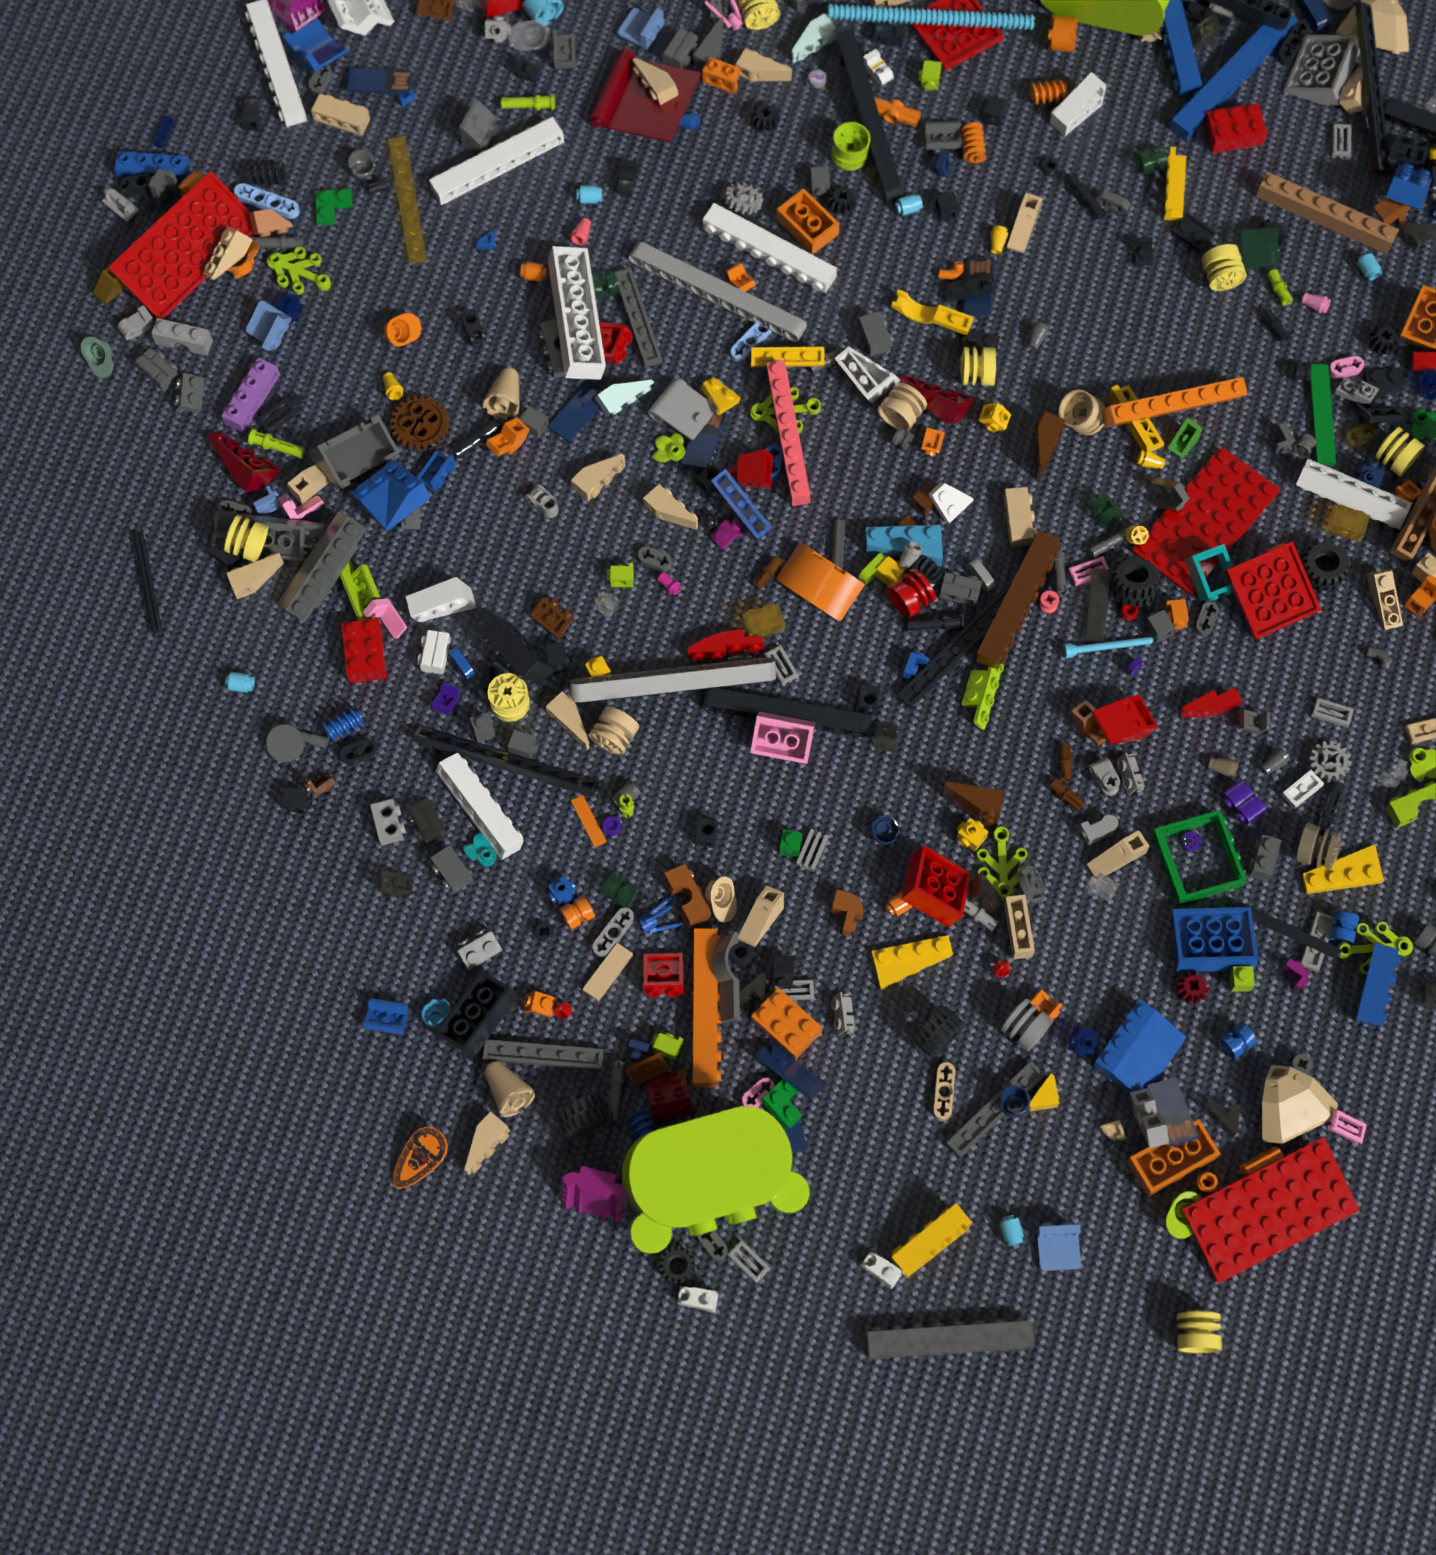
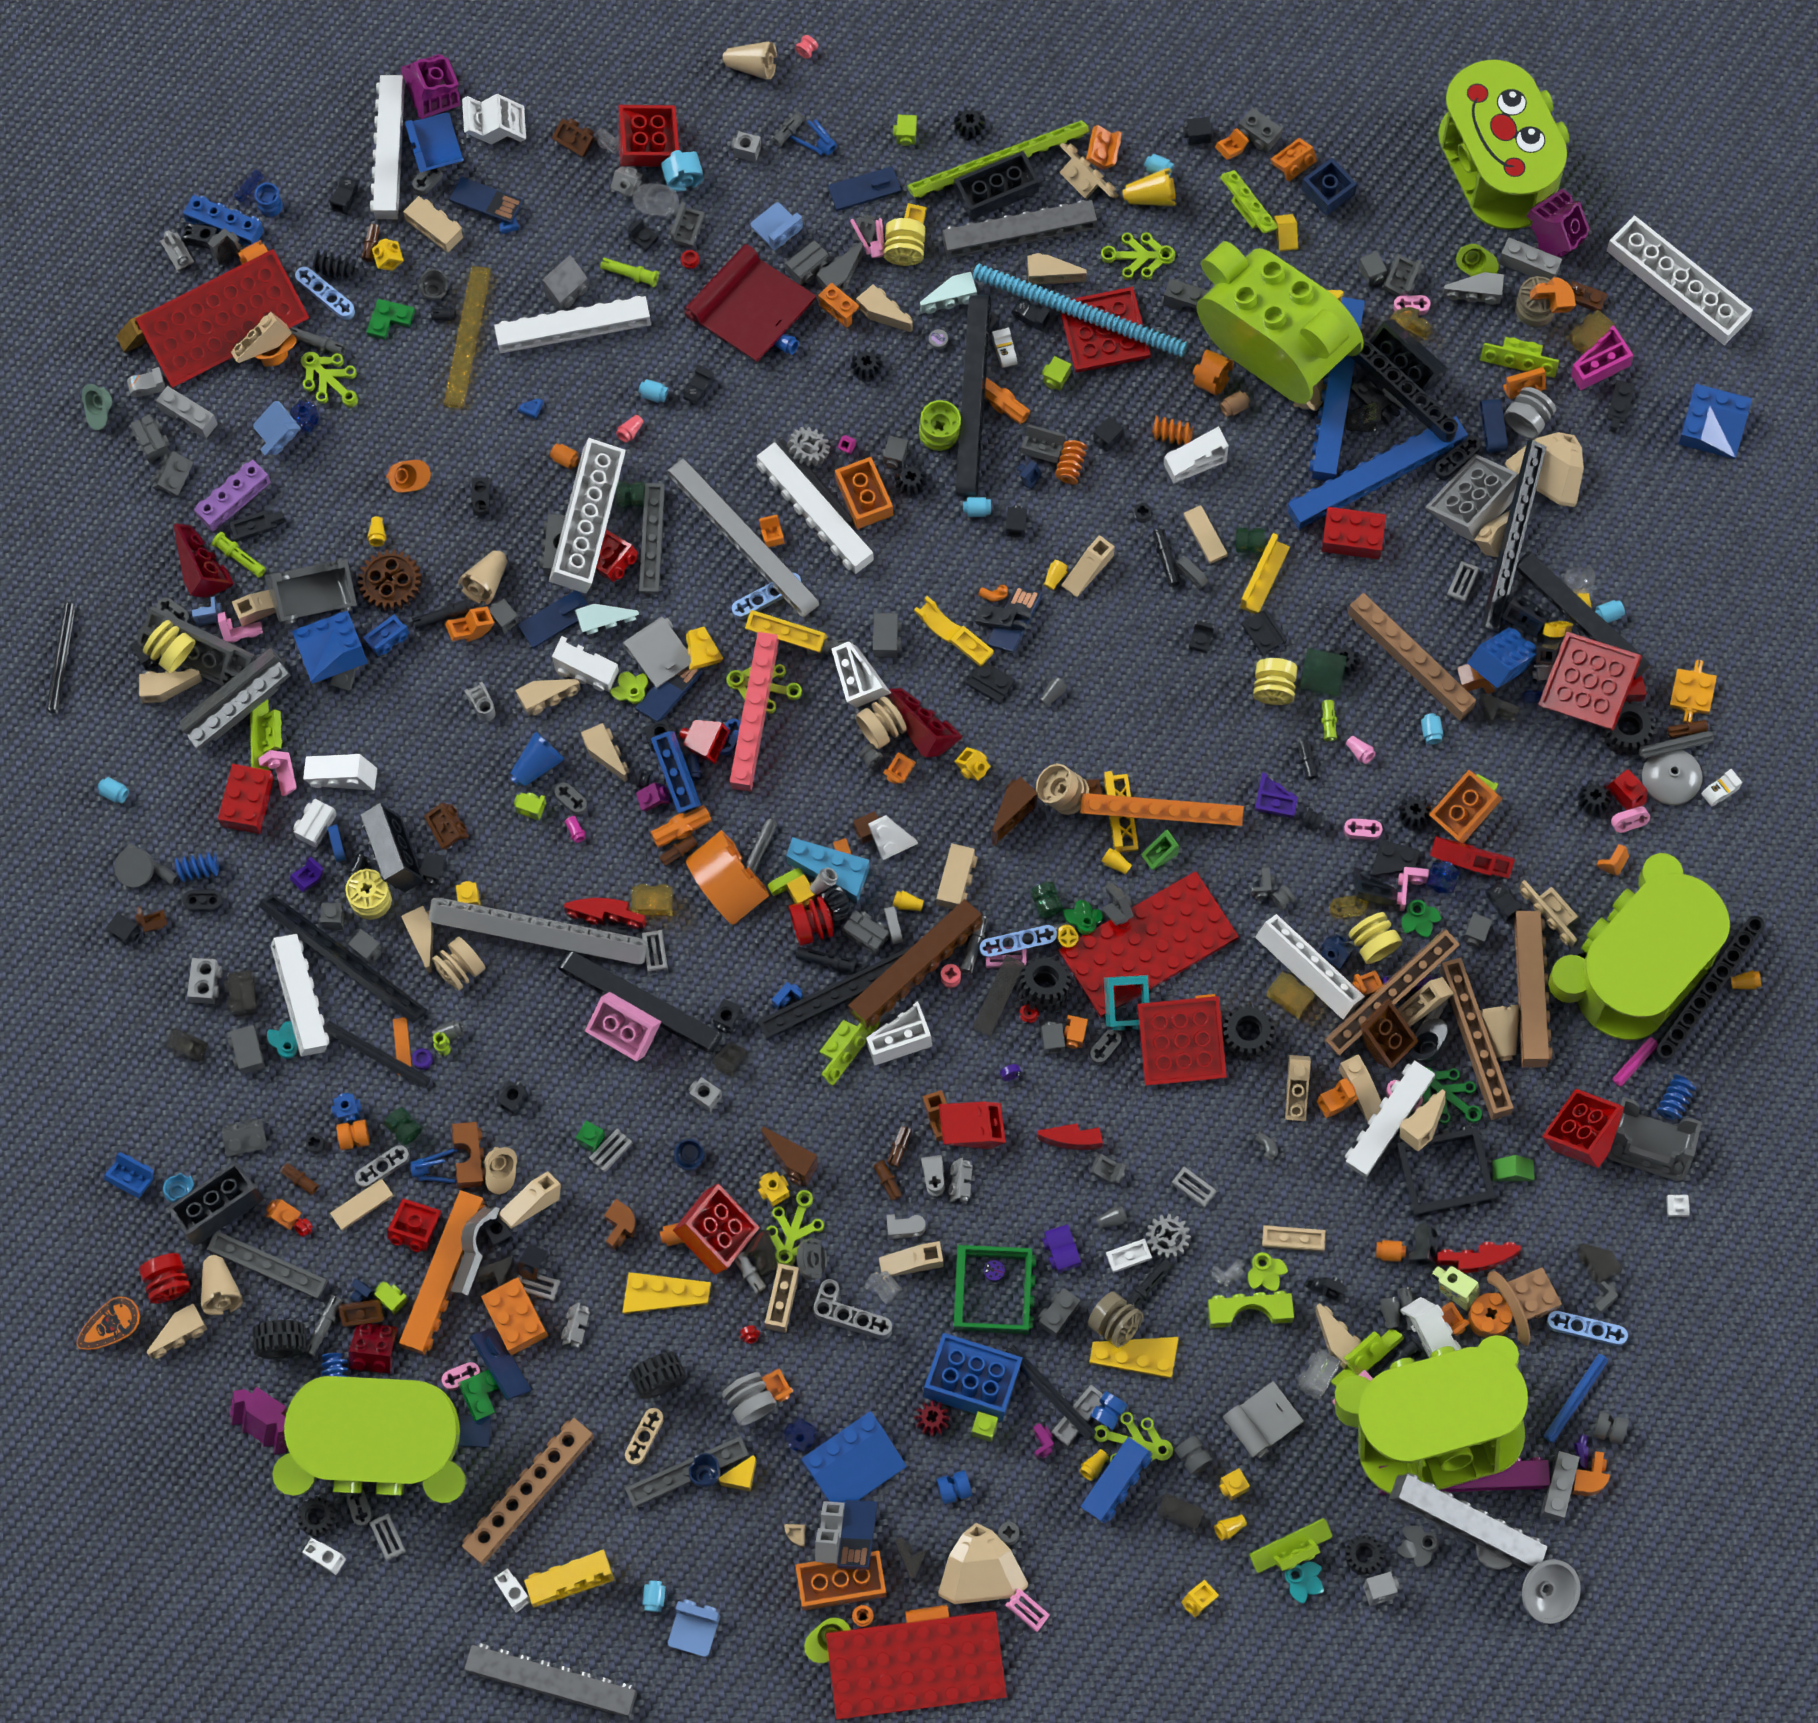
camera: 20 degrees right, 0 degrees up
(186, 136) = (268, 199): none -> blue wheel
(268, 221) = (314, 317): nougat slope -> none
(291, 147) = (370, 242): none -> reddish brown axle
(311, 150) = (387, 254): none -> yellow brick
(457, 1099) = (164, 1278): none -> red wheel
(542, 968) = (299, 1178): none -> reddish brown axle
(570, 835) = (377, 1054): none -> black axle
(577, 77) = (690, 259): none -> red plate
(606, 604) = (503, 830): clear tile -> none
(612, 534) = (535, 760): none -> blue cone
(616, 440) = (584, 666): none -> white wedge
(658, 81) = (769, 298): tan slope -> none
(751, 494) = (694, 767): none -> dark blue pin
(762, 551) = (681, 826): none -> orange piece
(775, 184) = (846, 439): none -> dark pink piece
(880, 780) = (706, 1102): none -> light grey brick
(887, 1109) = (483, 1551): none -> medium nougat brick
(978, 366) = (975, 704): light yellow wheel -> none
(985, 551) = (906, 901): none -> yellow cone
(1029, 667) = (900, 1037): none -> white wedge
(1071, 650) = (953, 1033): medium azure piece -> none
(1085, 919) = (854, 1314): none -> light grey beam
(1091, 54) = (1235, 404): none -> medium nougat brick
(1095, 551) = (1018, 943): none -> light blue beam
(1110, 168) = (1205, 534): none -> tan tile
(1142, 515) = (1083, 917): none -> green plate
(1224, 766) = (1059, 1205): dark tan cone -> none
(1262, 365) = (1274, 799): none -> dark purple wing
(1322, 415) = (1316, 871): green tile -> none
(1349, 981) = (1092, 1467): none -> yellow cone
(1356, 392) = (1359, 858): light grey slope -> none
(1400, 397) = (1414, 875): none -> bright pink bracket

